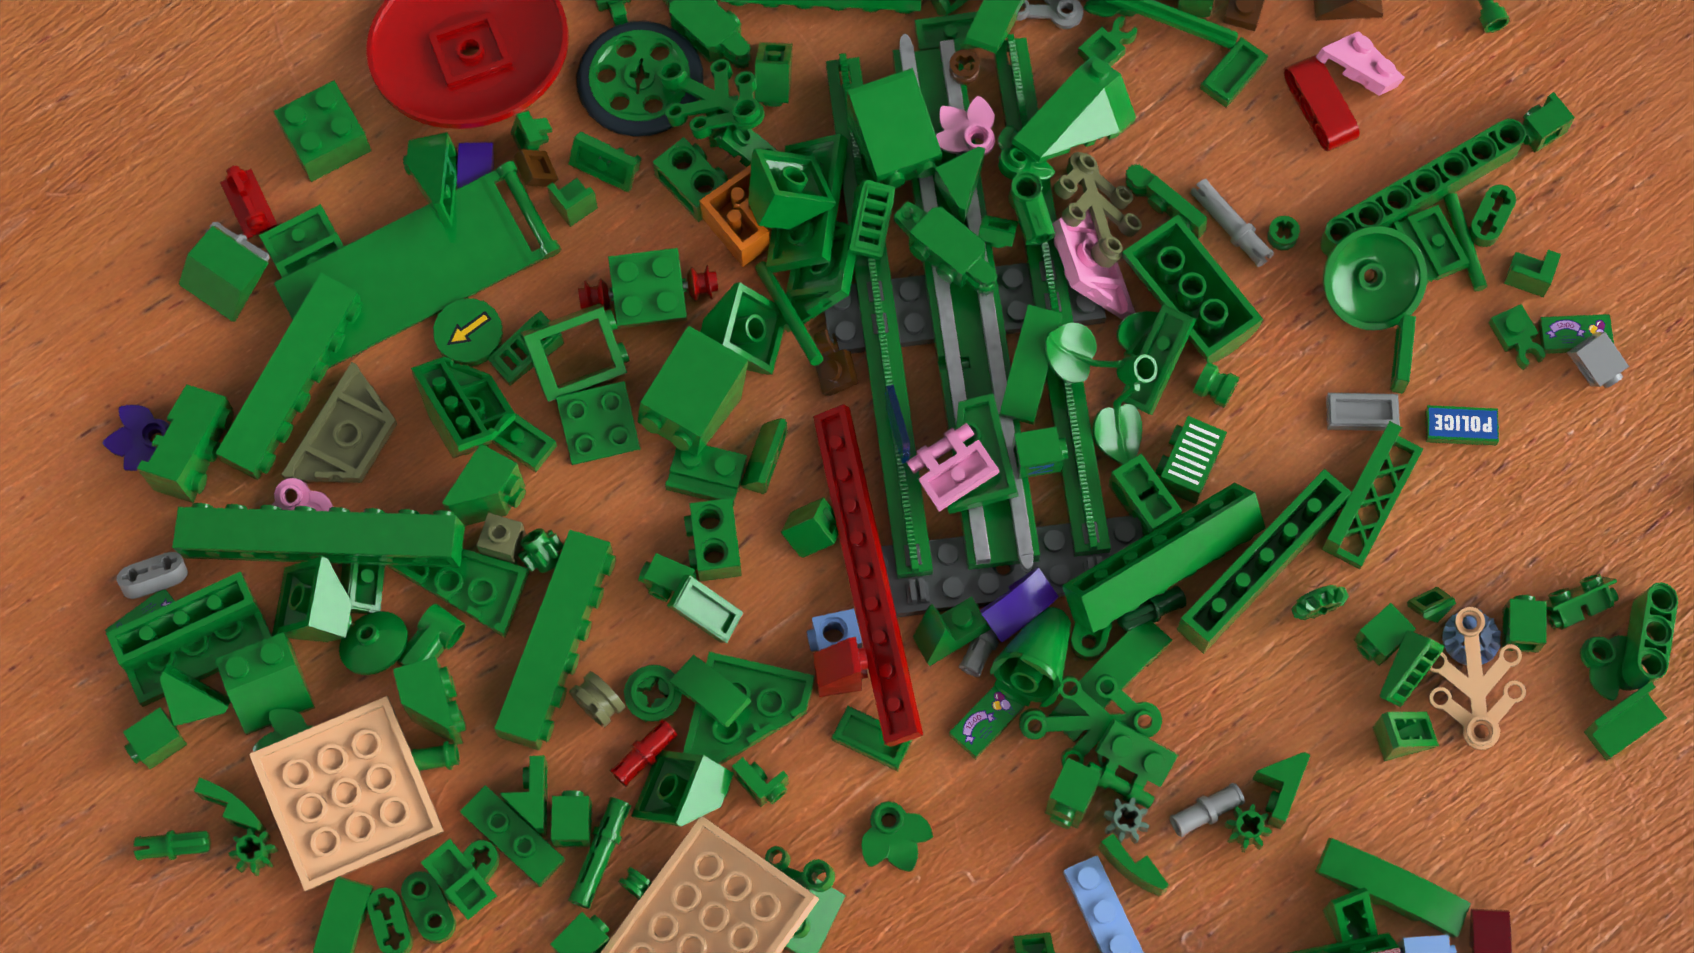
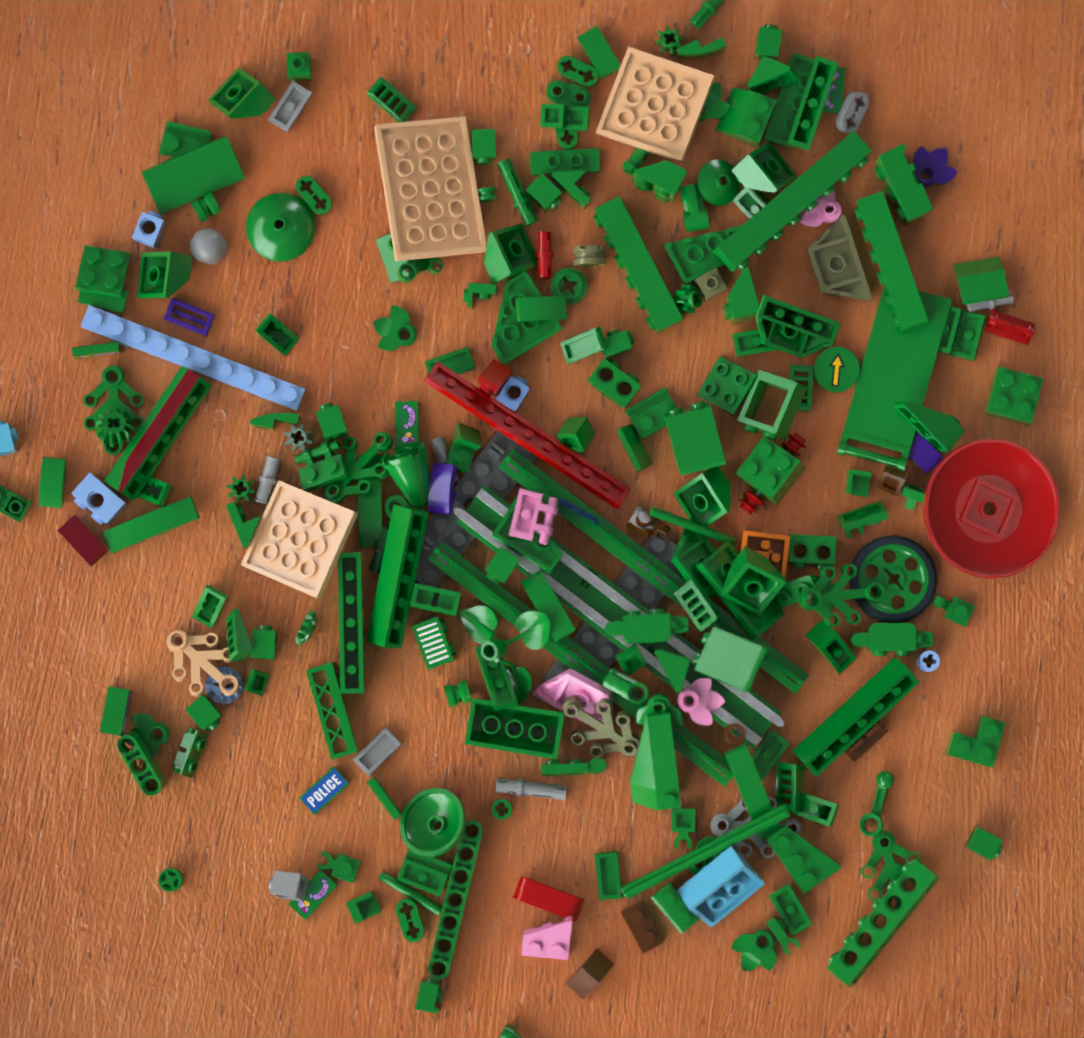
camera: 130 degrees right, 15 degrees up
(1236, 701) = (299, 539): none -> light nougat plate

